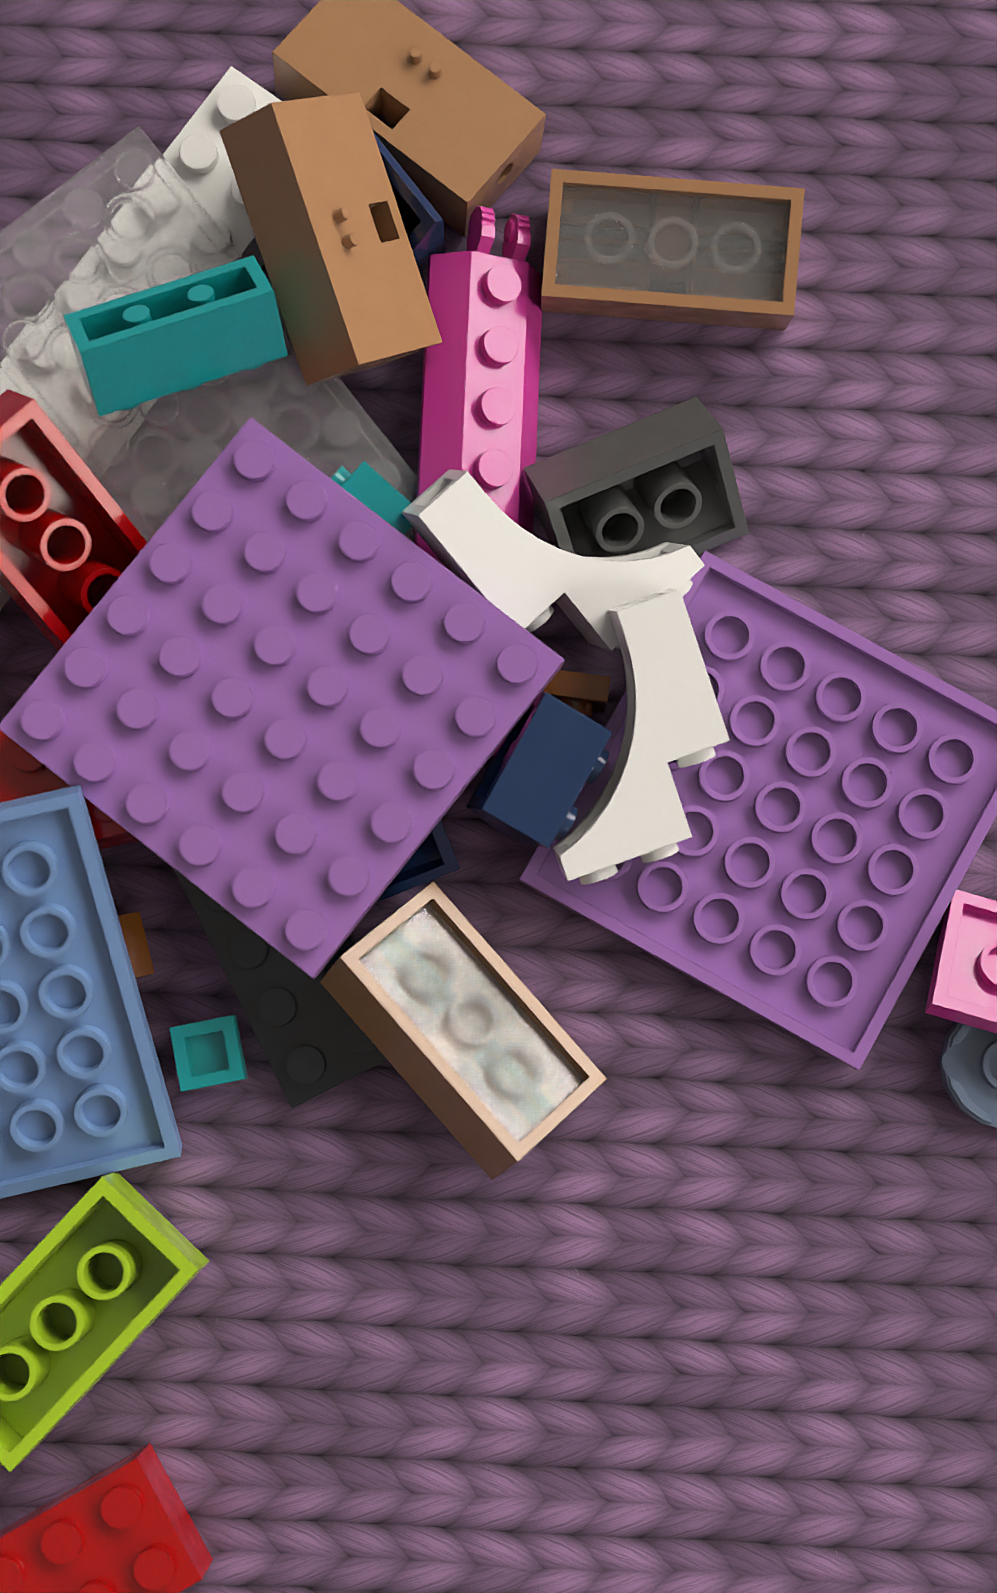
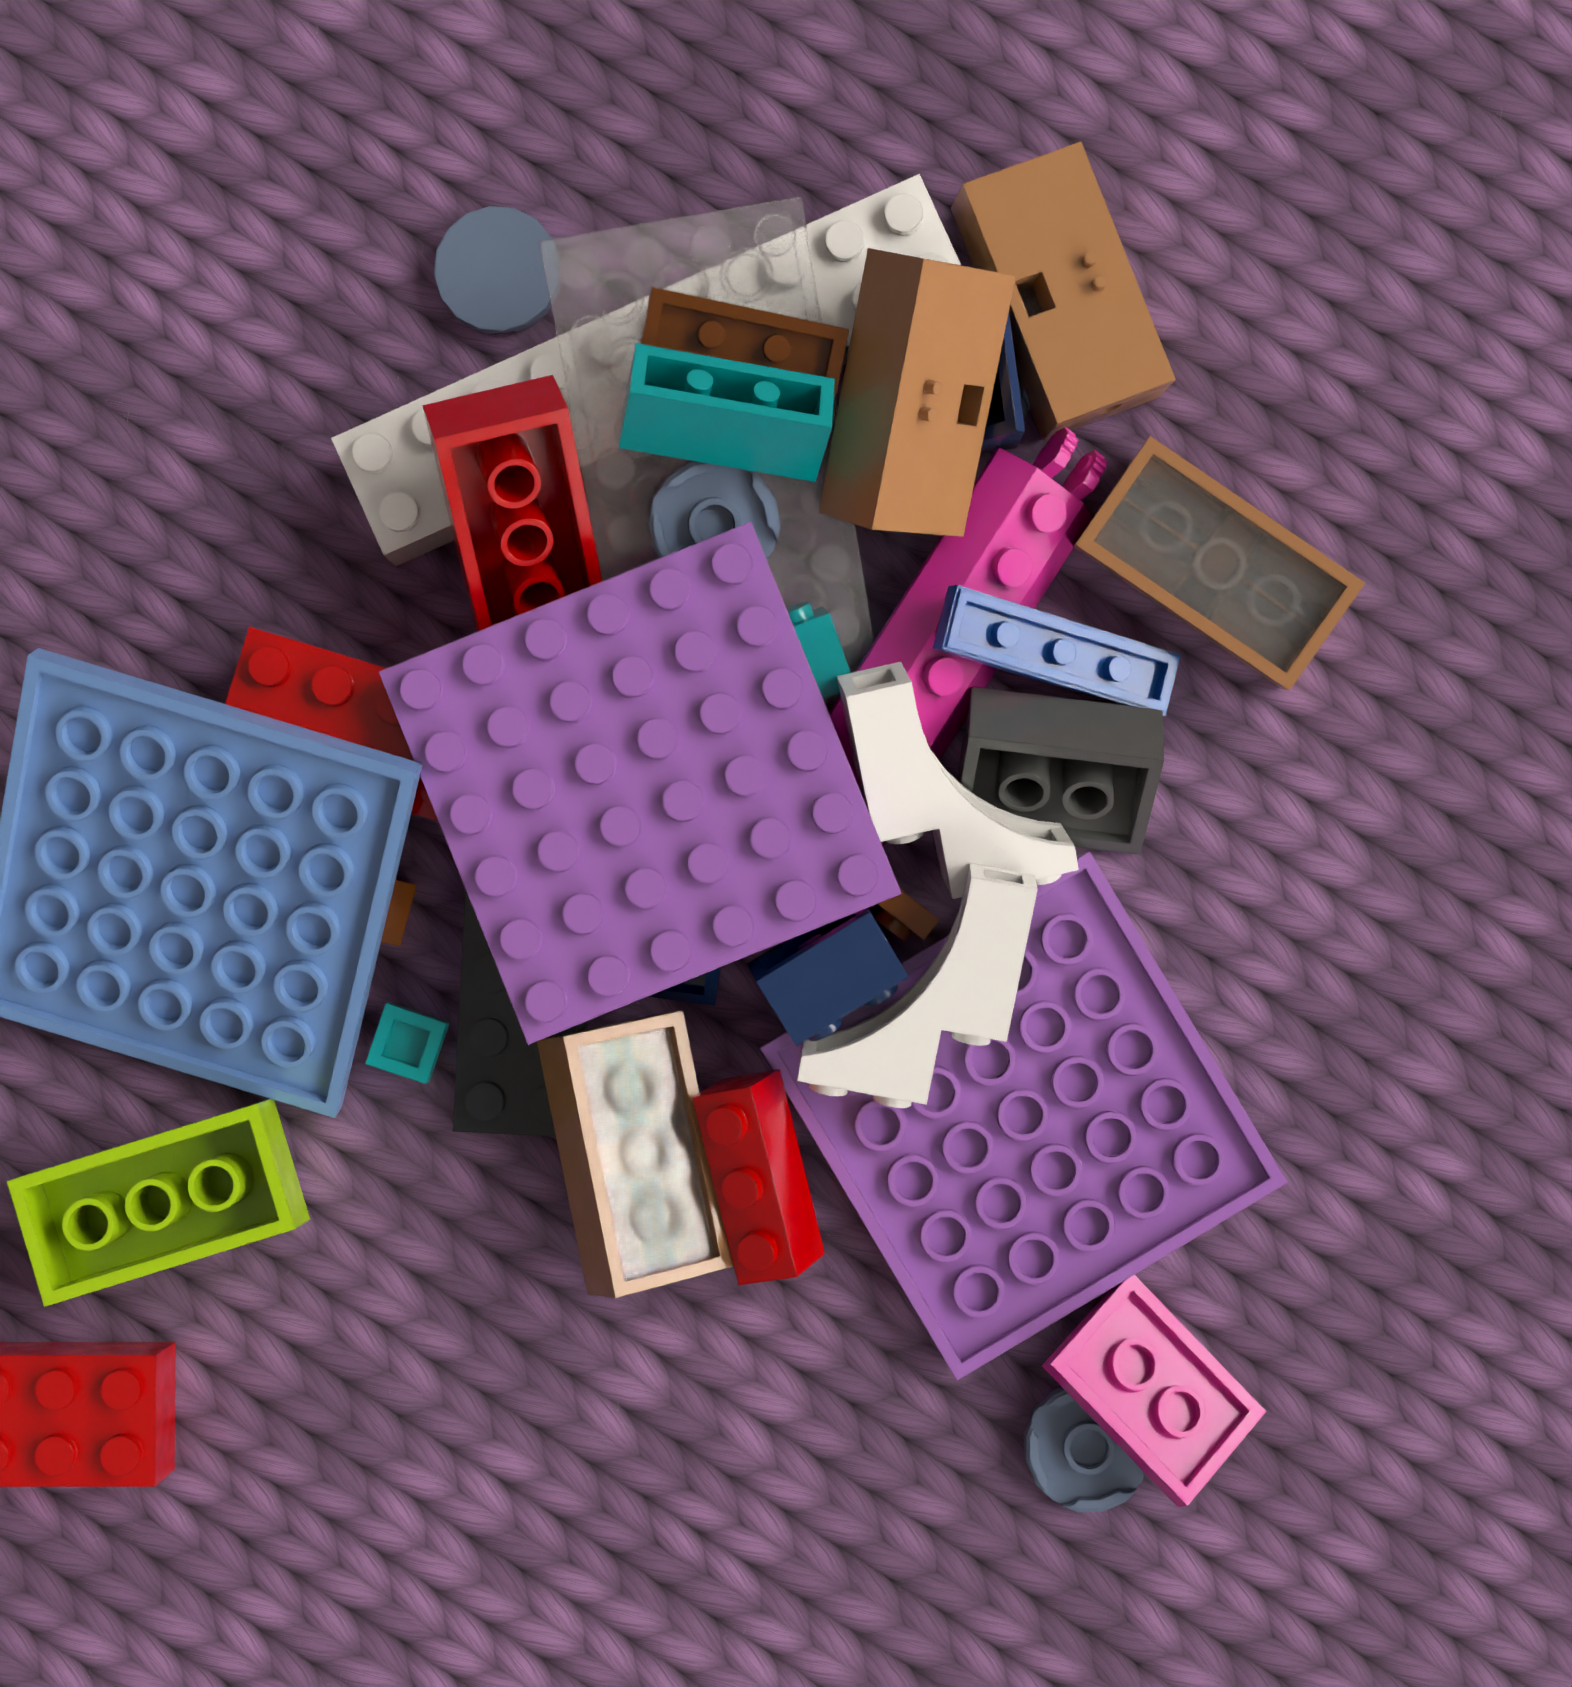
camera: 30 degrees right, 5 degrees up
(152, 260) = (743, 334): none -> reddish brown plate
(203, 423) = (707, 501): none -> sand blue tile
(573, 395) = (1055, 650): none -> tile
(583, 990) = (759, 1177): none -> red brick

